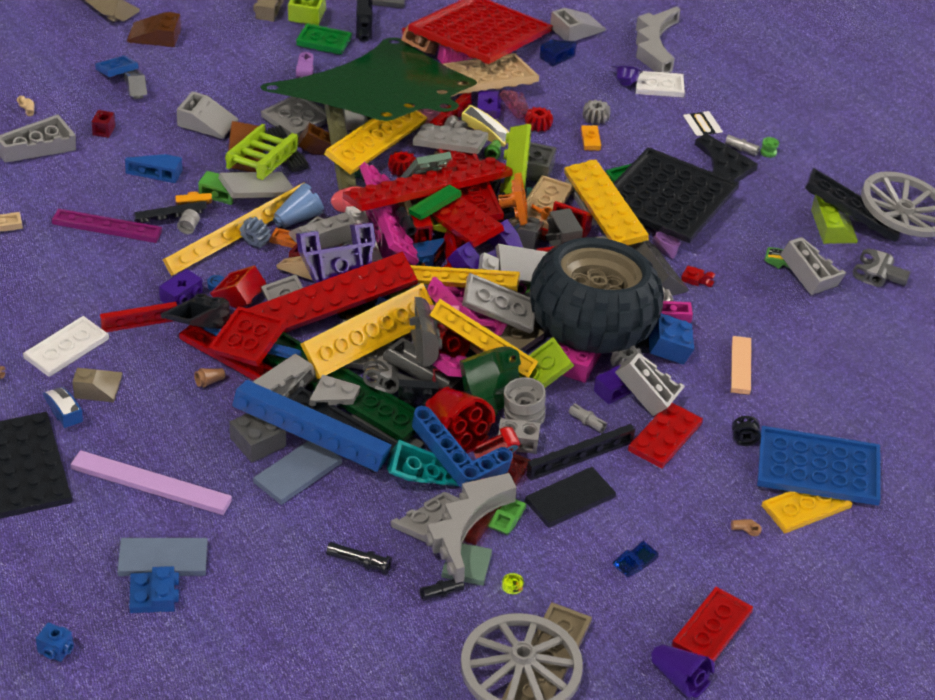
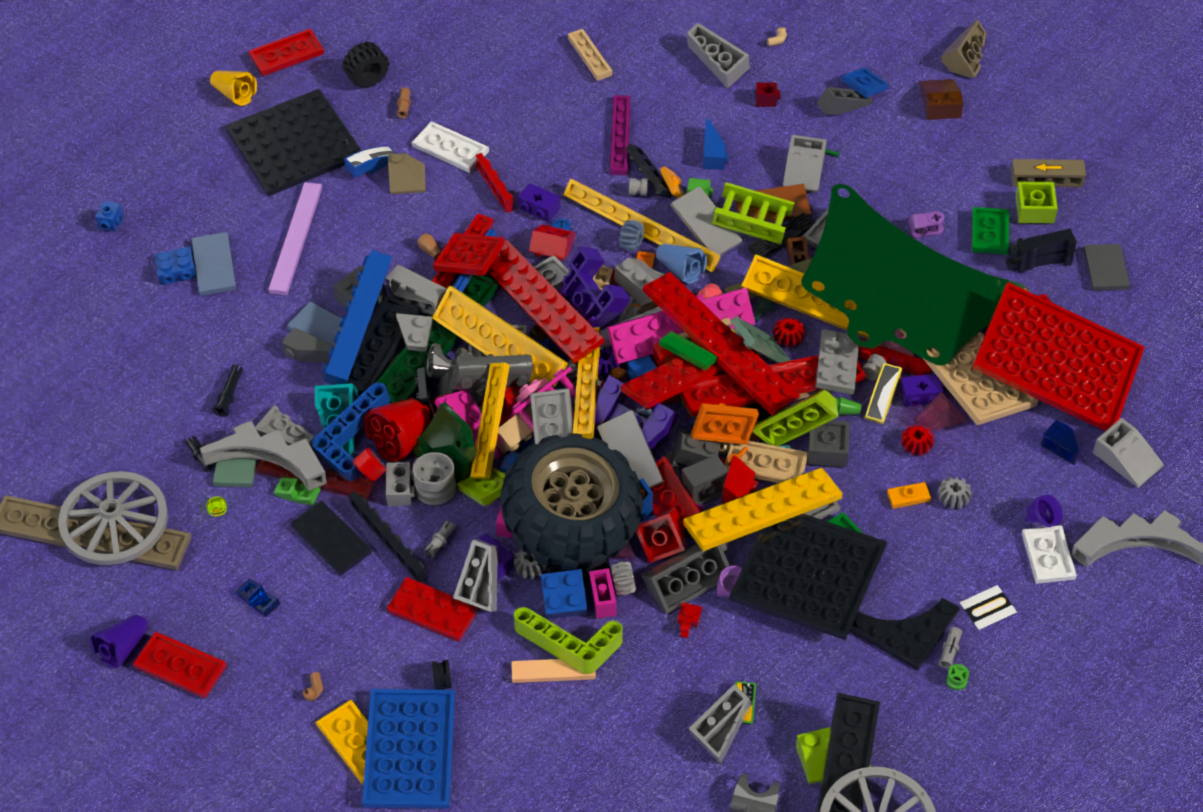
camera: 85 degrees right, 10 degrees up
(201, 311) = (494, 215): black slope -> none
(318, 487) = (305, 347): none -> dark grey slope
(406, 221) = (656, 335): black pin -> none
(488, 262) = (605, 410): light grey plate -> none
(732, 338) = (573, 651): none -> lime beam

